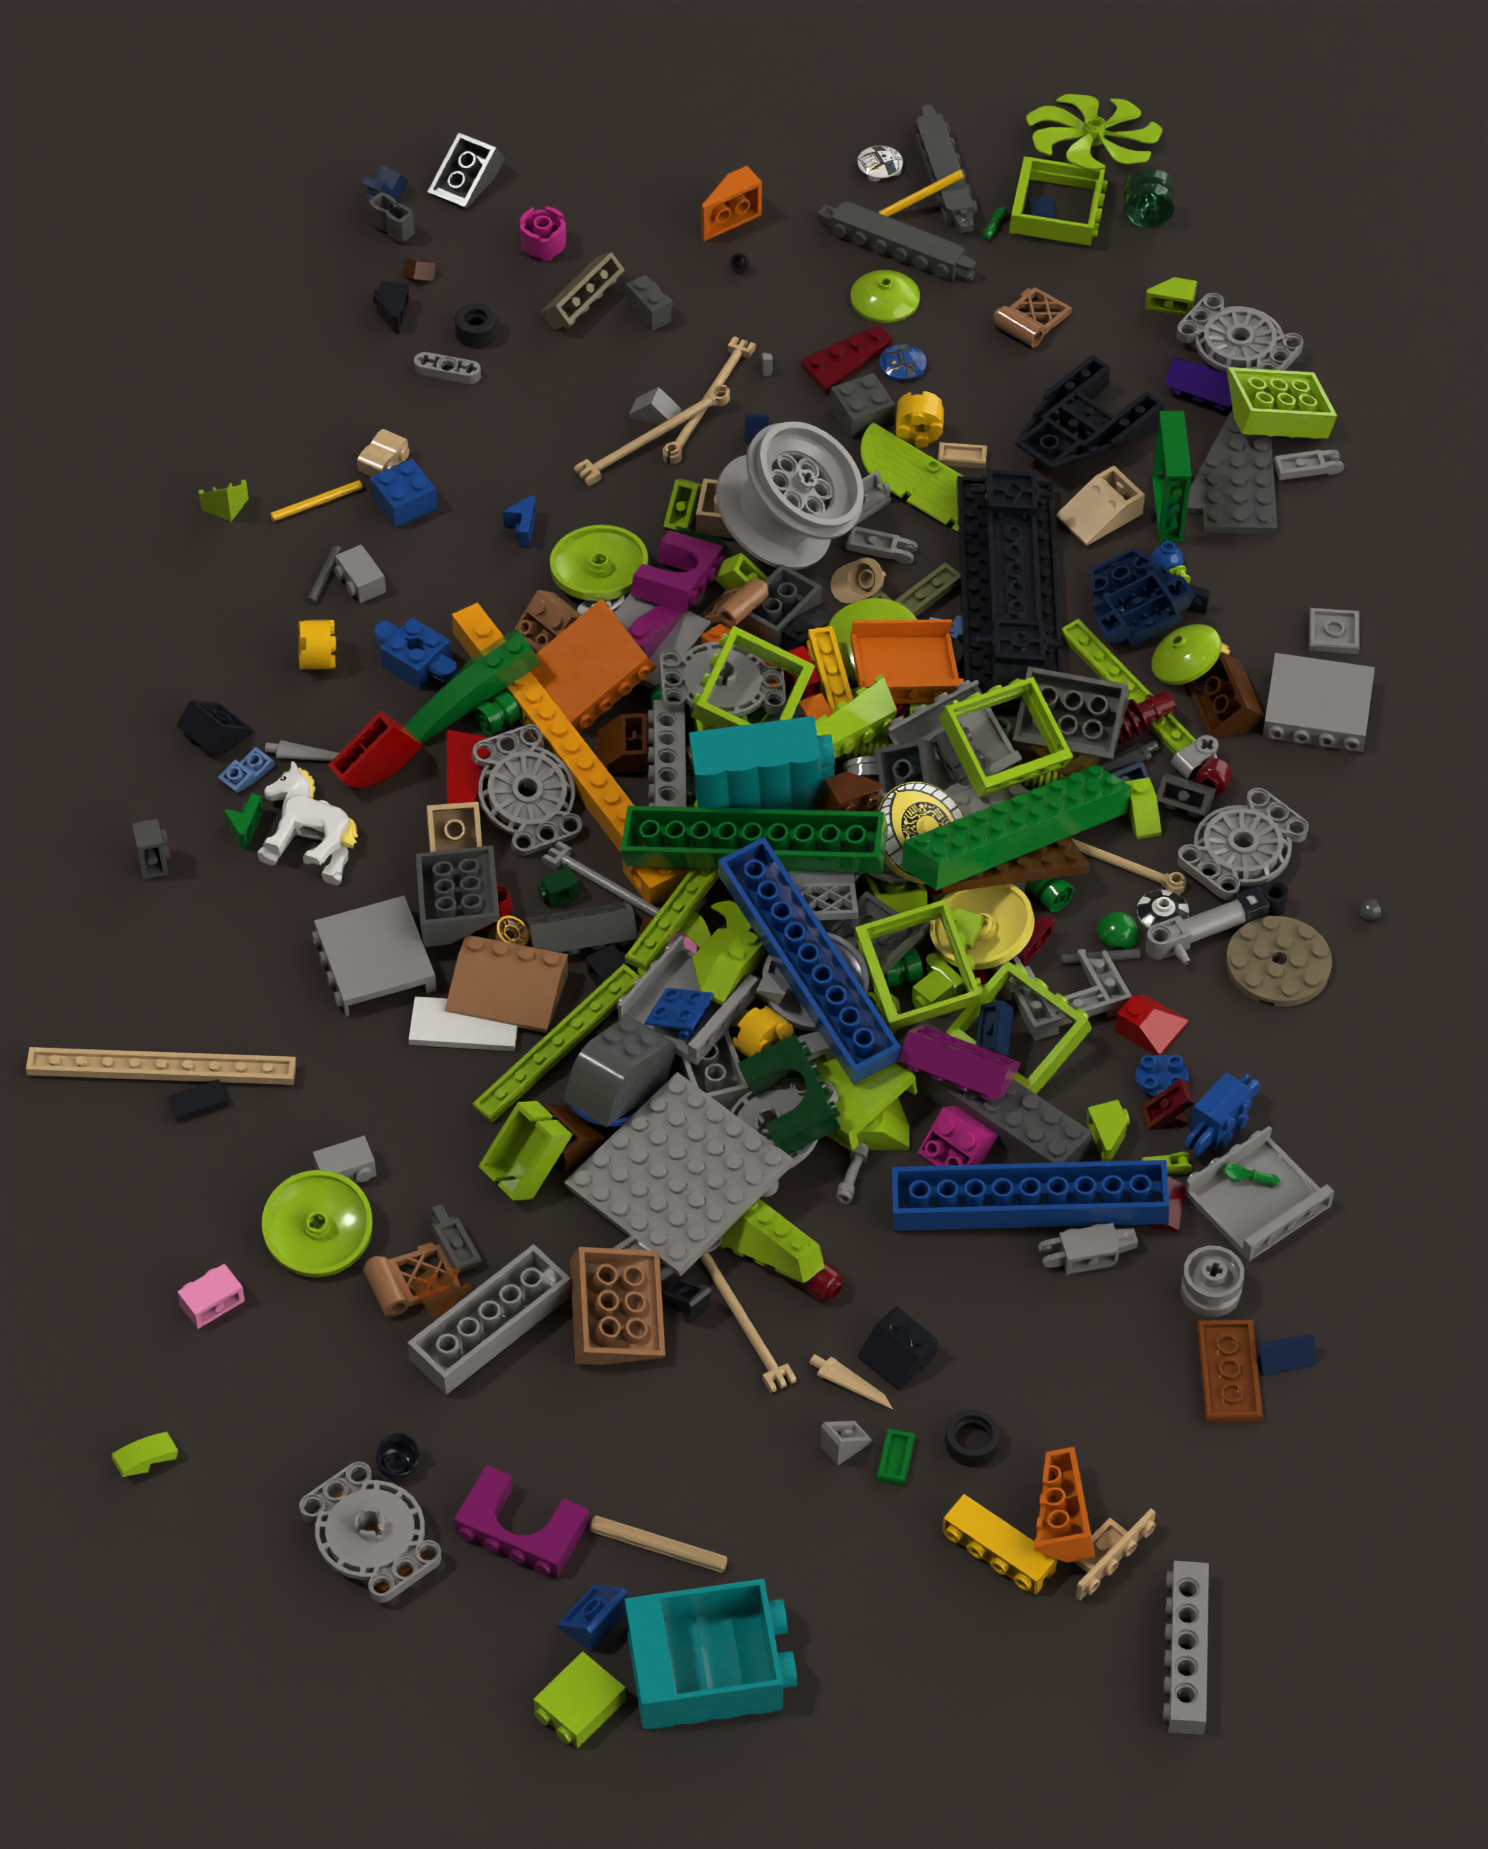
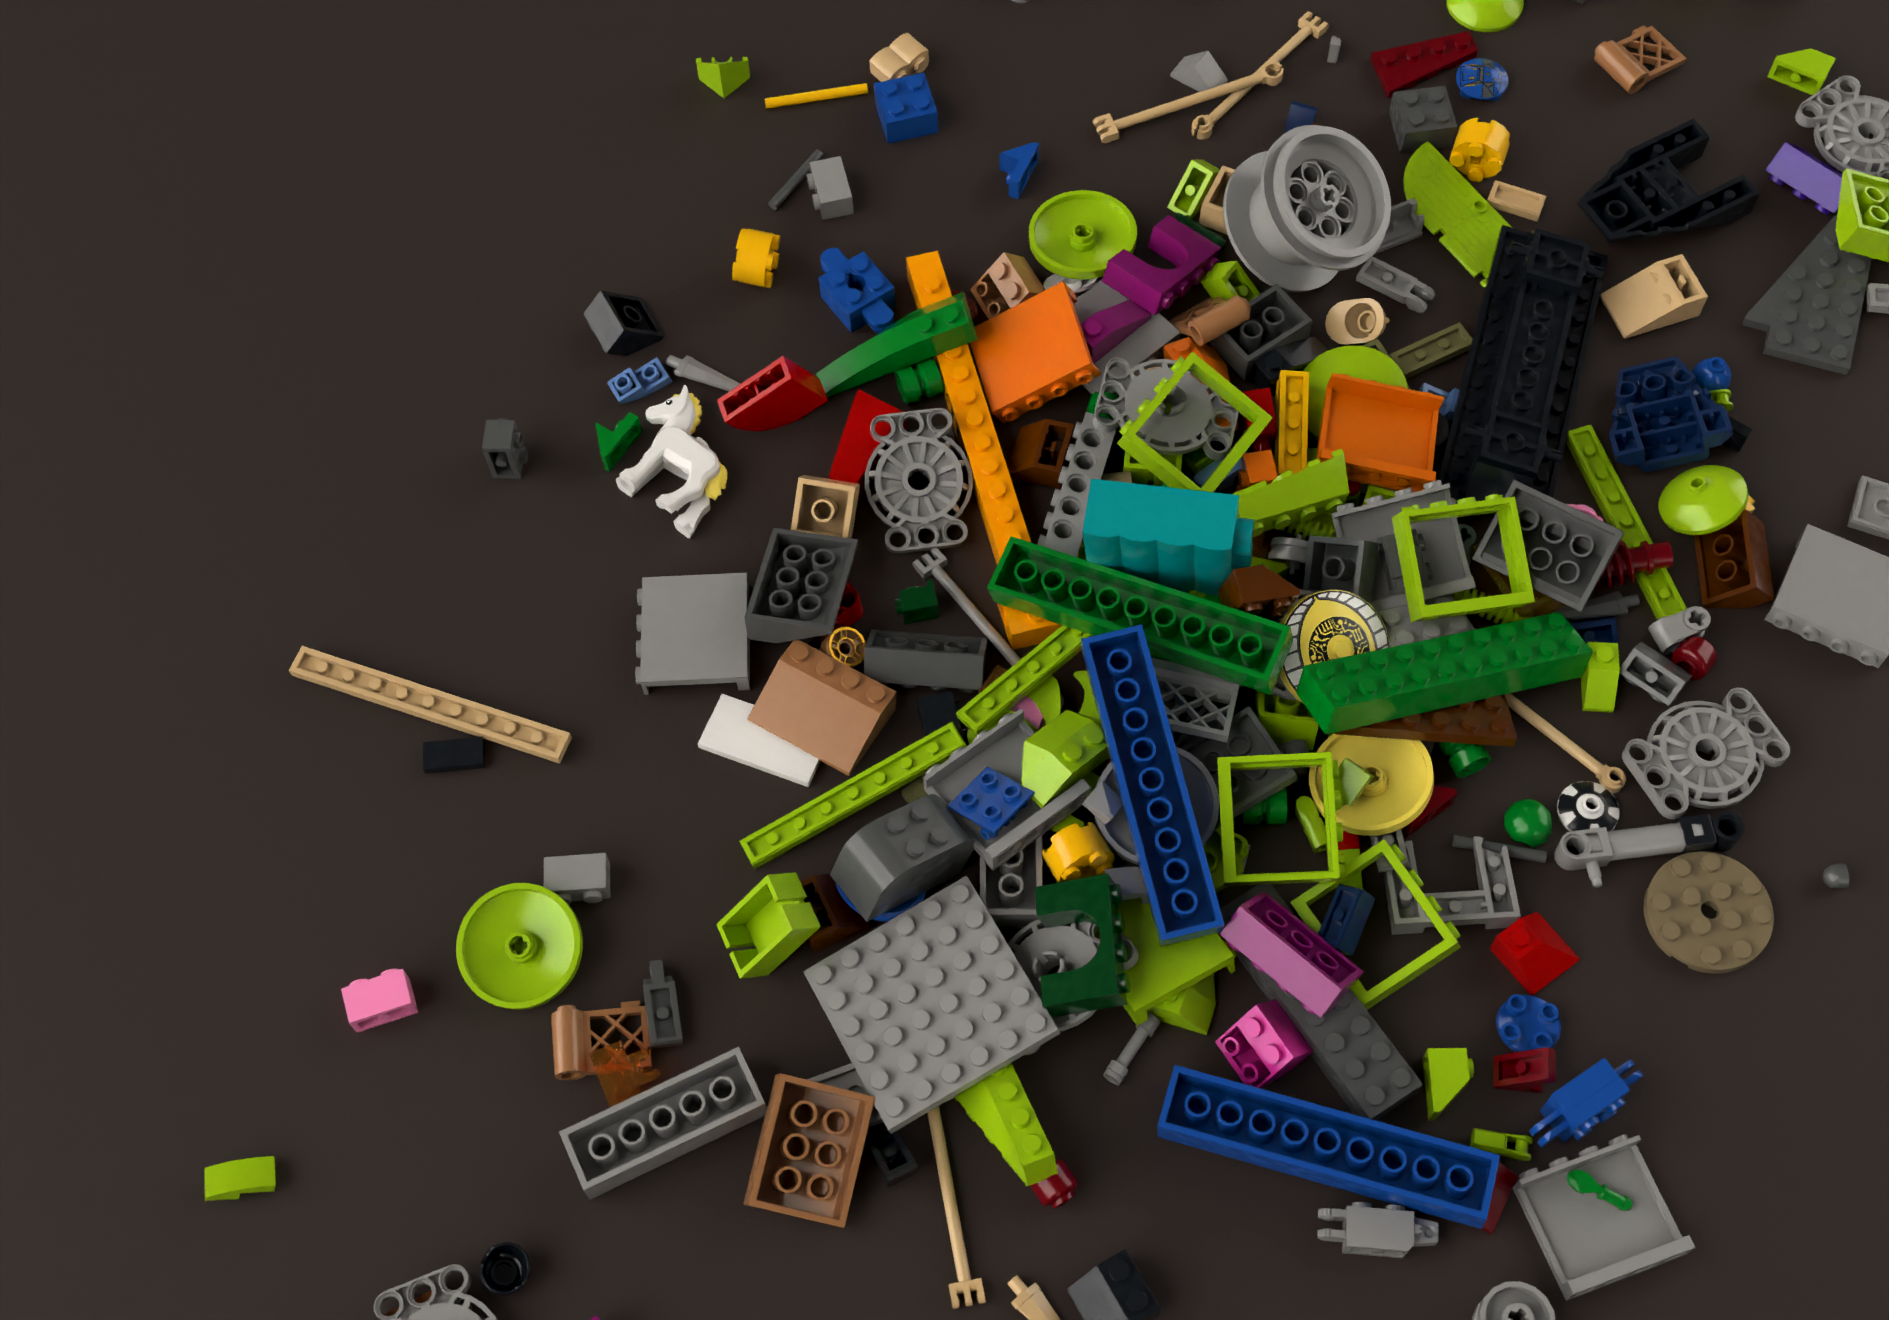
camera: 20 degrees right, 10 degrees up
(932, 990) = (1290, 845): lime brick -> none
(1173, 487) = (1745, 293): green window -> none

